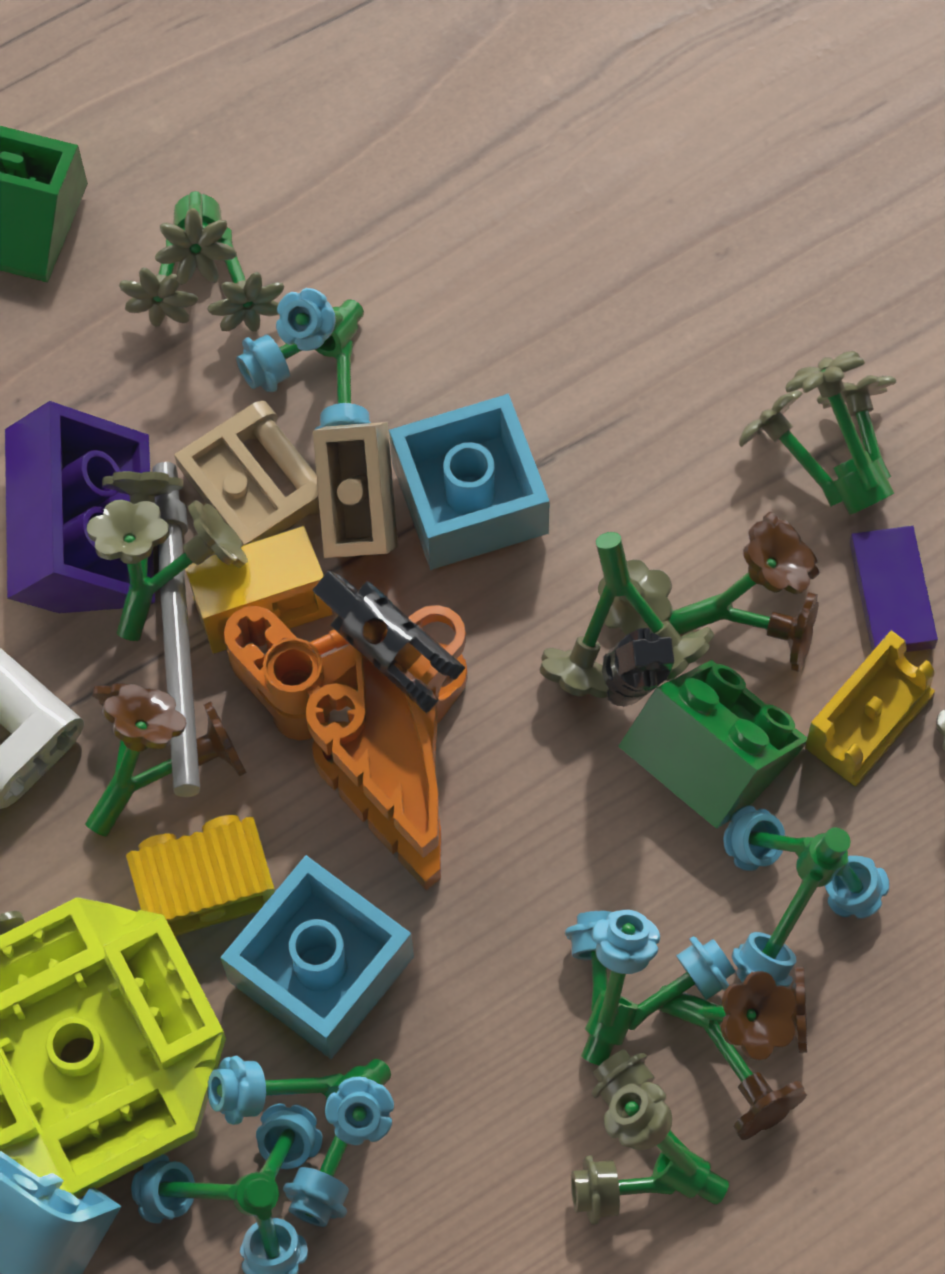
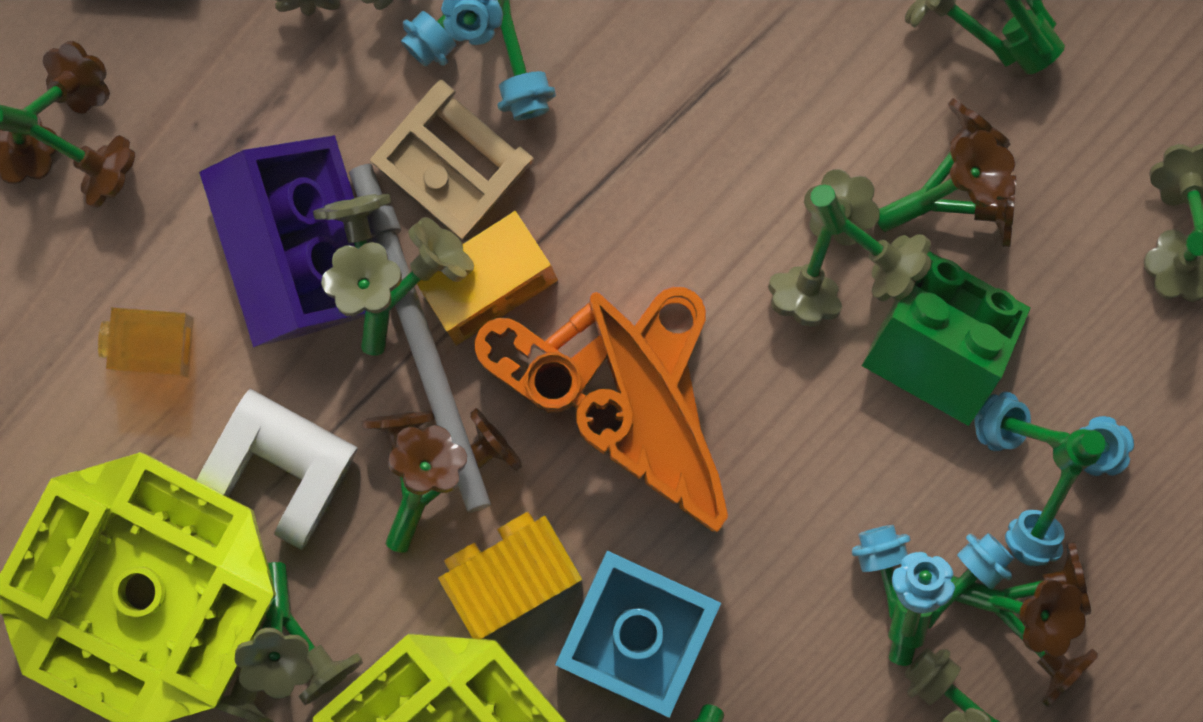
camera: 20 degrees left, 20 degrees up
(355, 489) = (557, 167): tan brick -> none
(363, 620) = (609, 328): black hinge -> none
(469, 481) = (662, 128): medium azure brick -> none
(637, 666) = (870, 302): black hinge -> none
(870, 710) = (1083, 271): yellow hinge -> none
(893, 587) = (1080, 141): dark purple tile -> none

